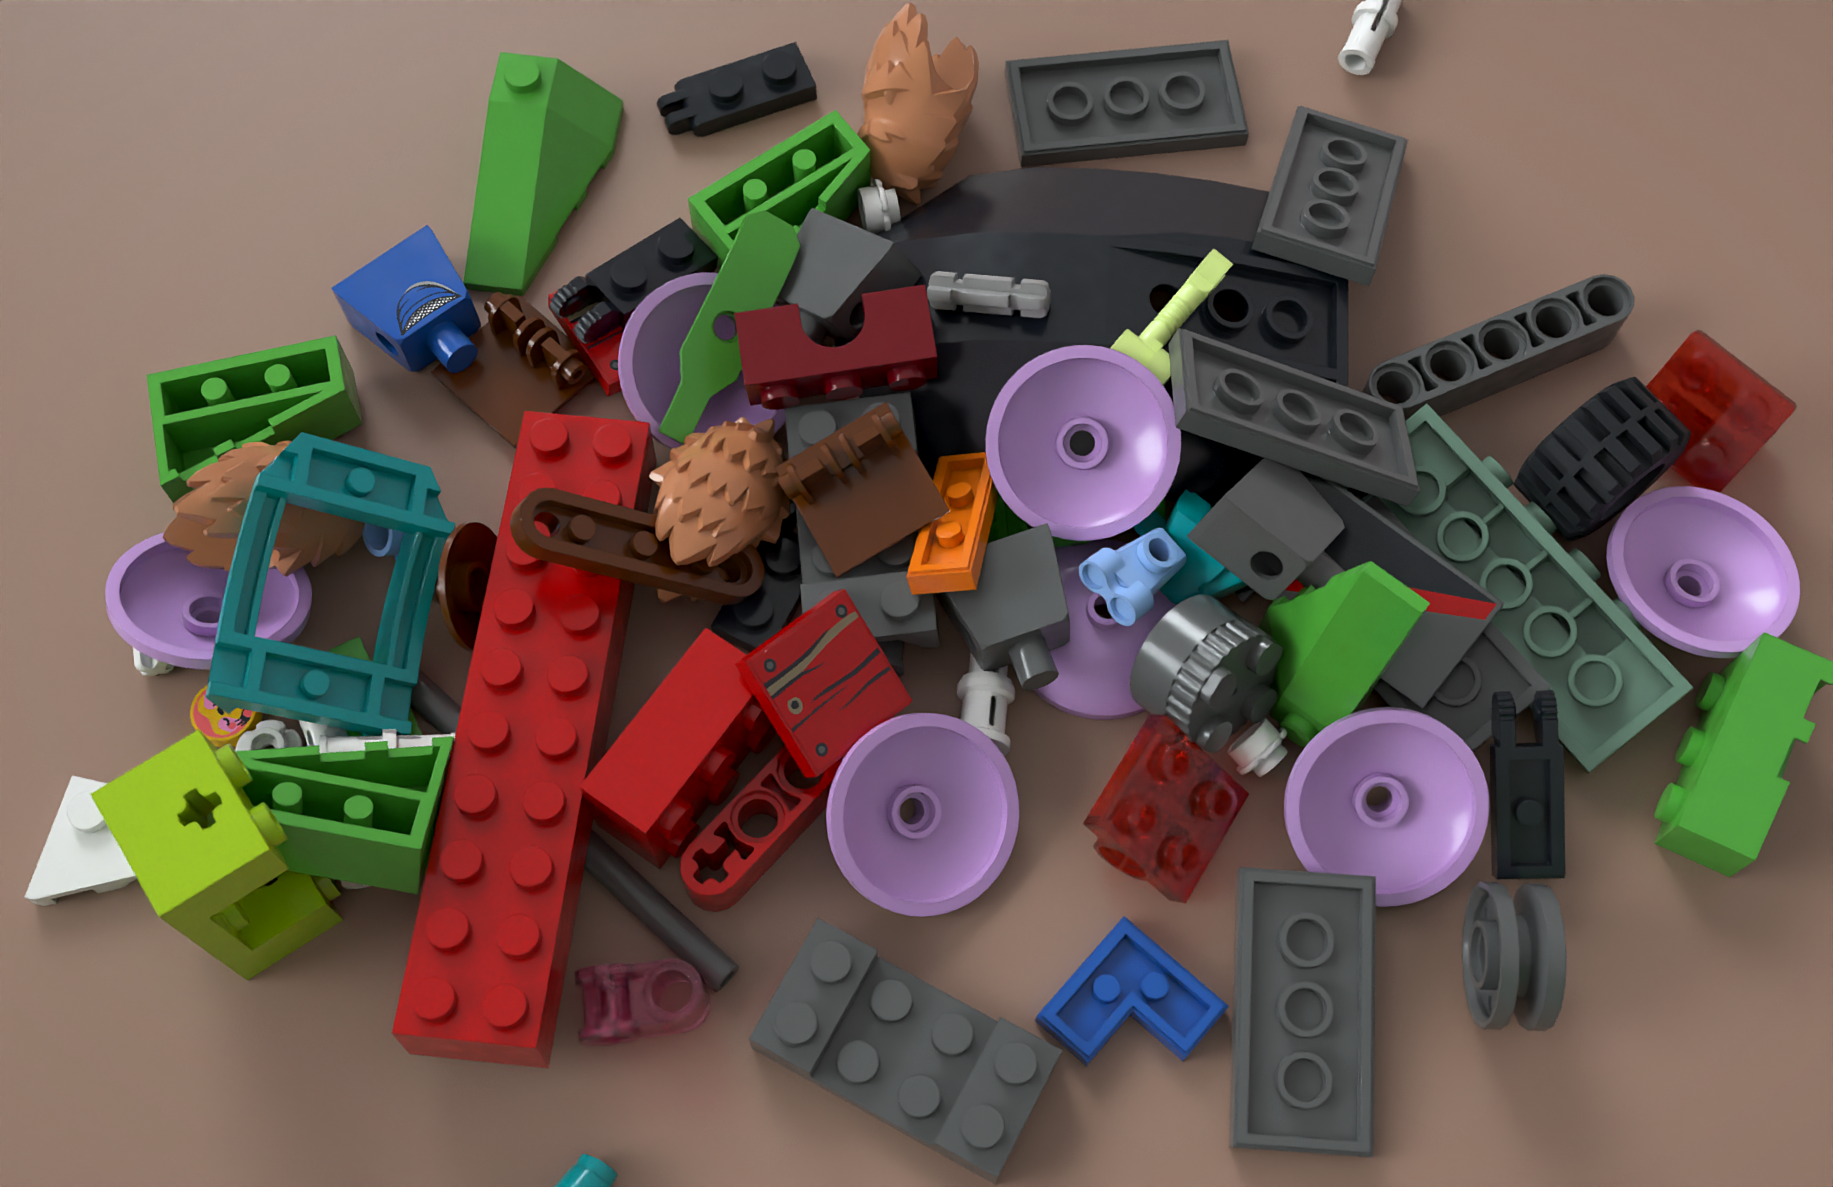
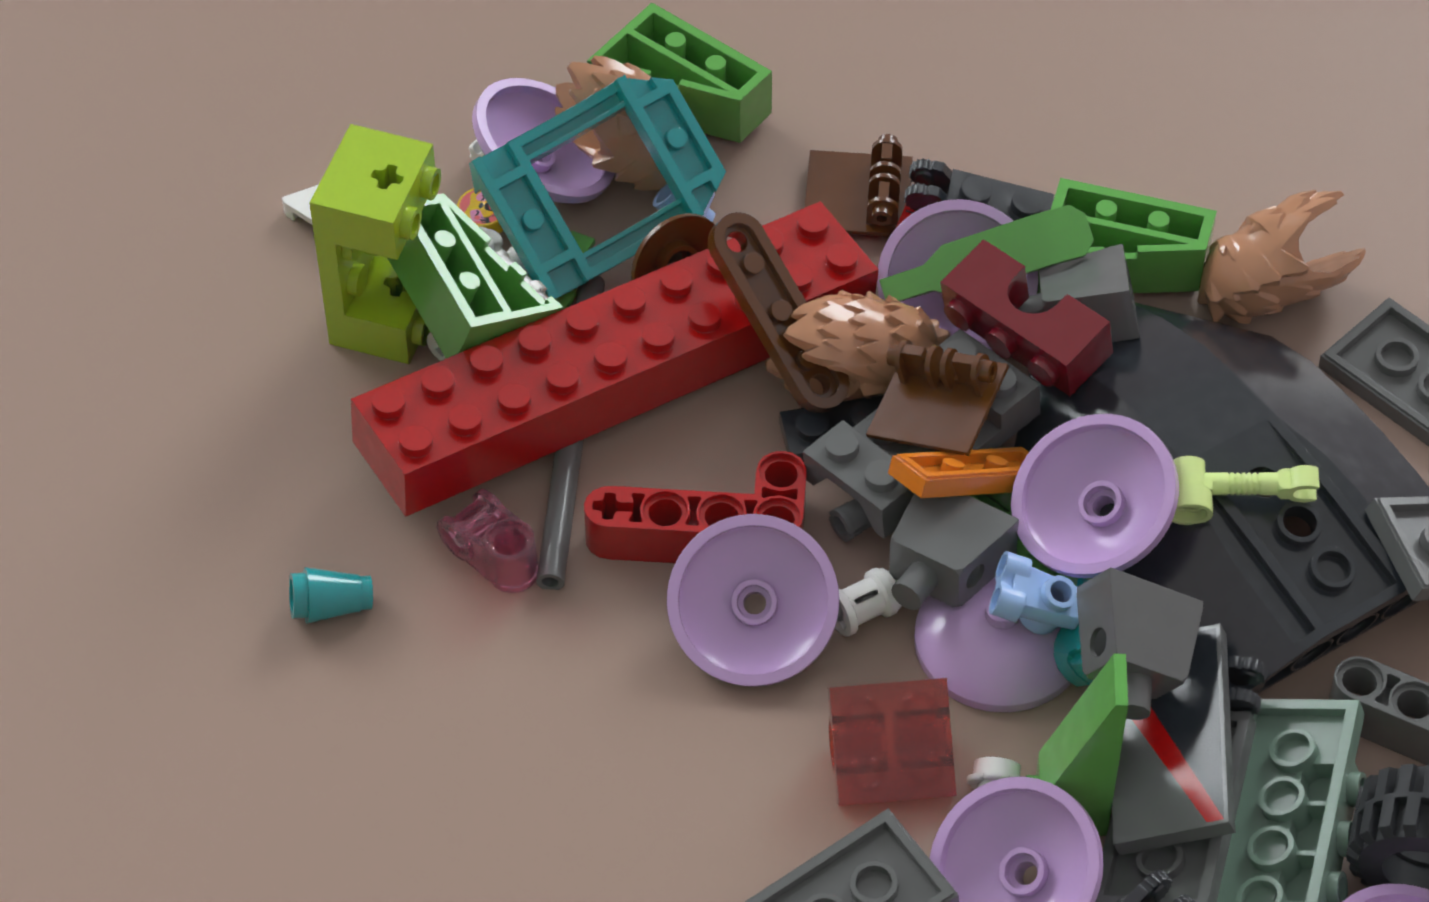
camera: 55 degrees right, 15 degrees down
(413, 305) = (847, 104): blue torso -> none
(538, 155) = (1026, 90): bright green wedge -> none
(678, 753) = (673, 434): red brick -> none
(738, 92) = (1196, 169): black hinge -> none
(824, 682) = (780, 465): red tile -> none
(878, 207) = (1180, 294): white plate -> none
(904, 1051) = (588, 702): dark grey piece -> none
(989, 294) = (1153, 373): light grey axle -> none
(1127, 979) = (752, 806): blue tile -> none
(1206, 671) = (1008, 691): dark grey piece -> none
(1291, 417) = (1239, 602): dark grey tile -> none

